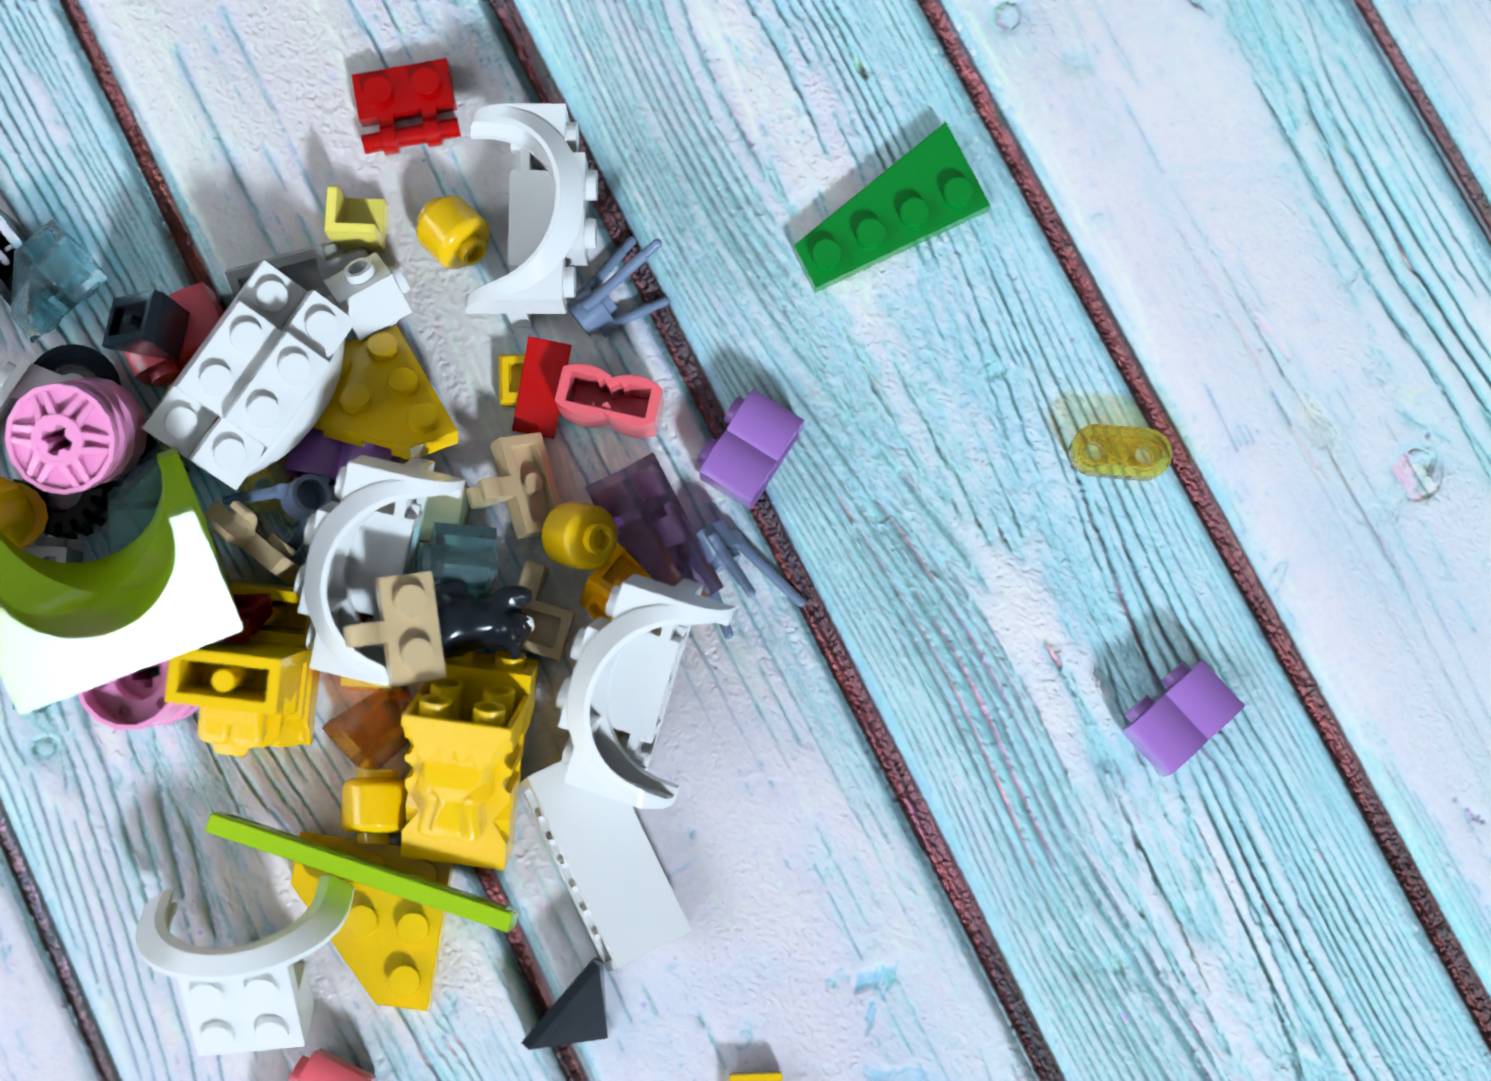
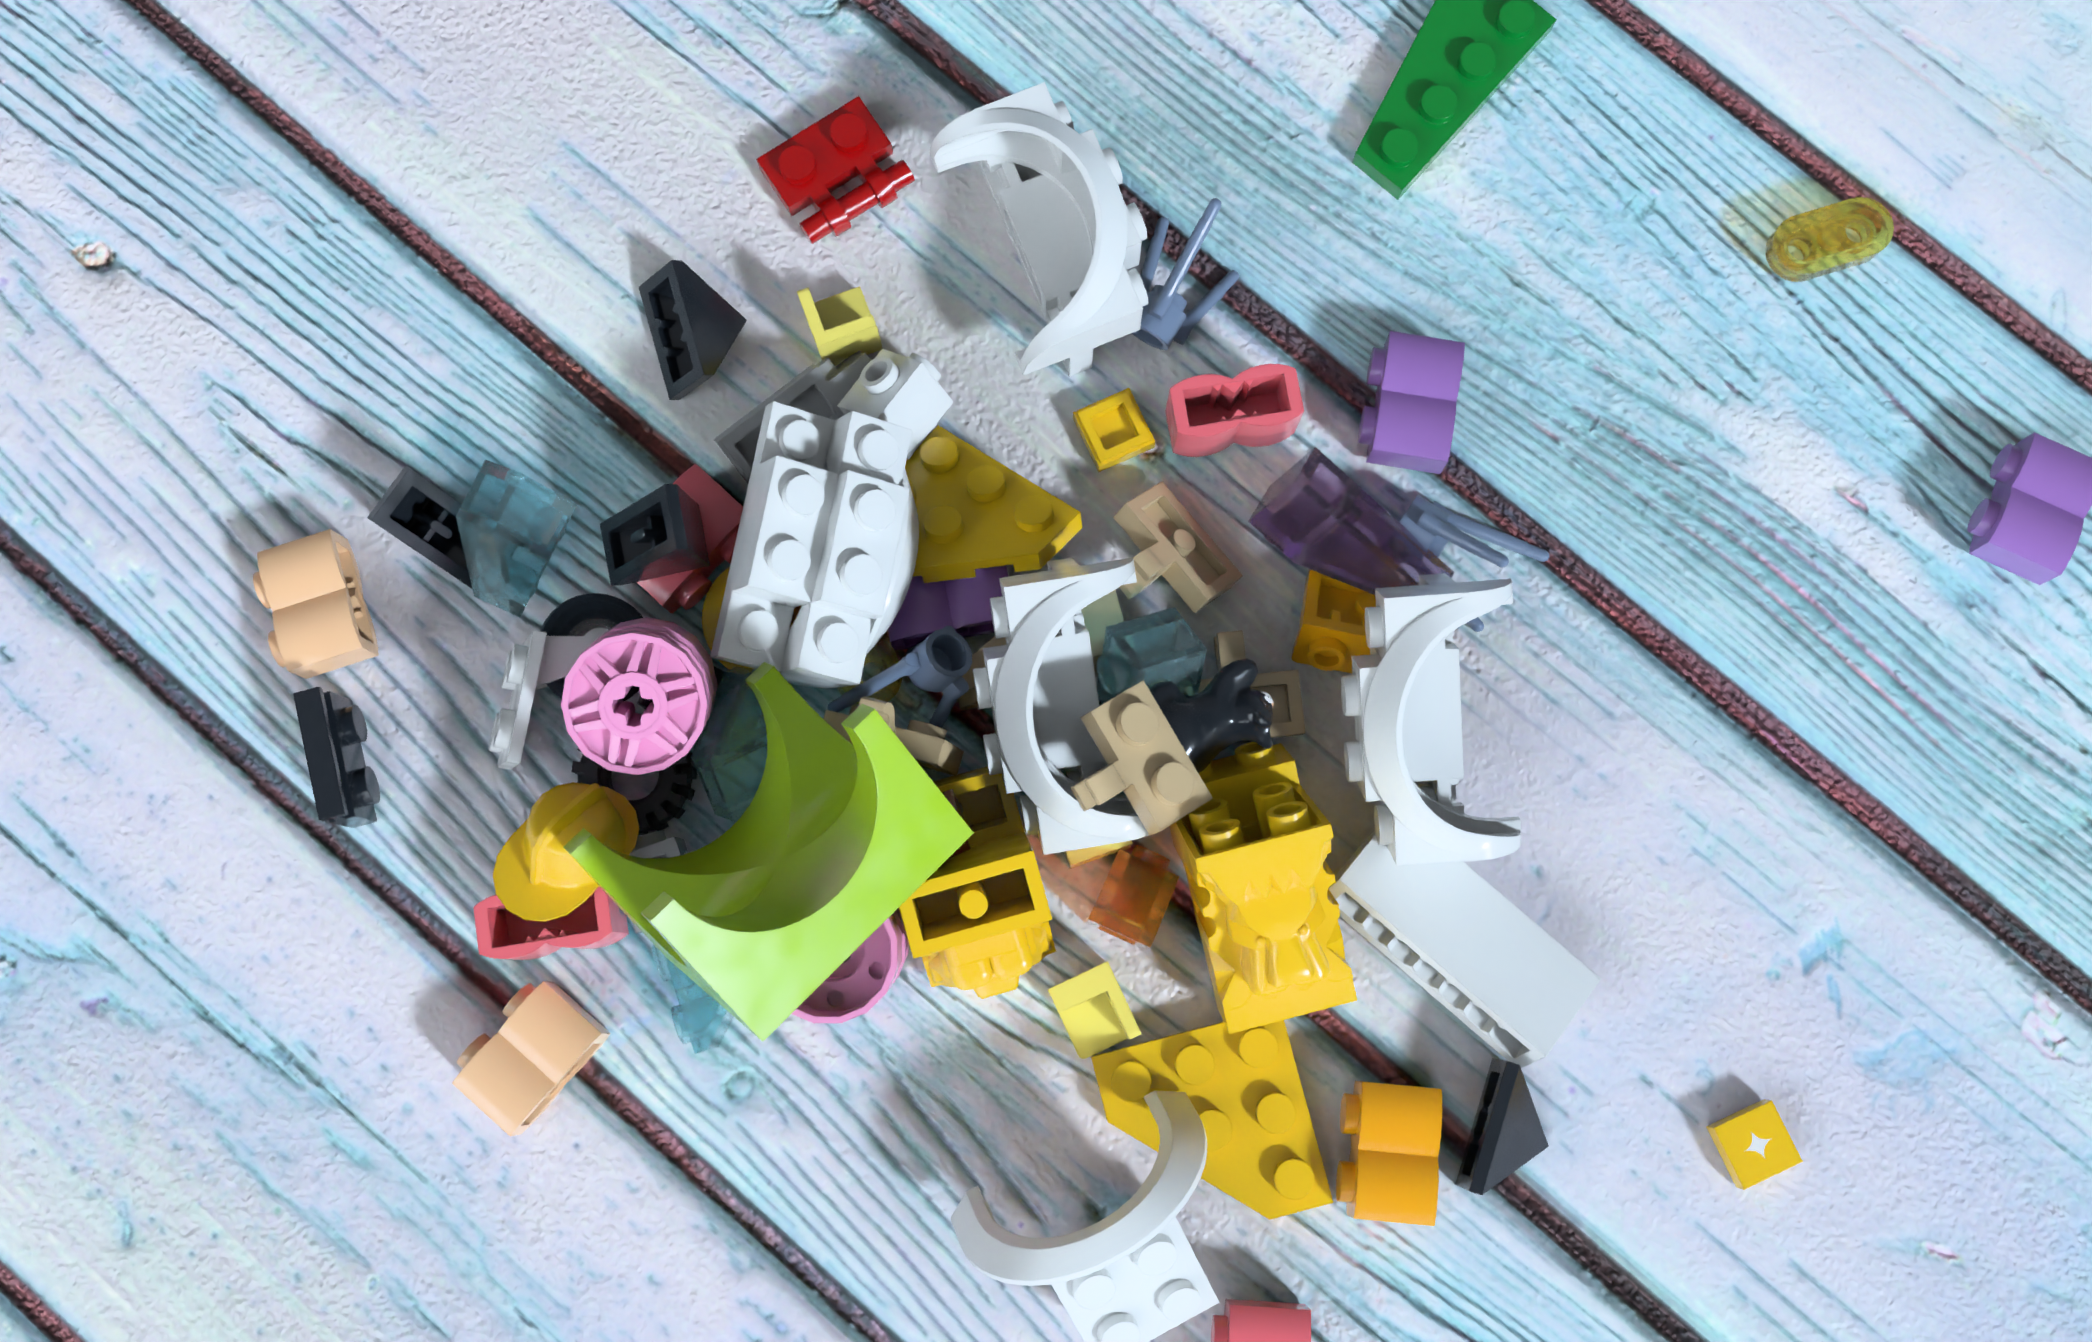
camera: 20 degrees left, 0 degrees up
(249, 179) = (688, 326): none -> black slope
(315, 797) = (1094, 1011): none -> light yellow panel
(363, 871) = (1200, 1068): lime tile -> none
(374, 805) = (1168, 989): yellow head -> none
(452, 232) = (958, 291): yellow head -> none
(484, 992) = (1392, 1153): none -> light orange brick
(538, 387) = (1142, 428): red sticker -> none
(579, 535) = (1269, 578): yellow head -> none

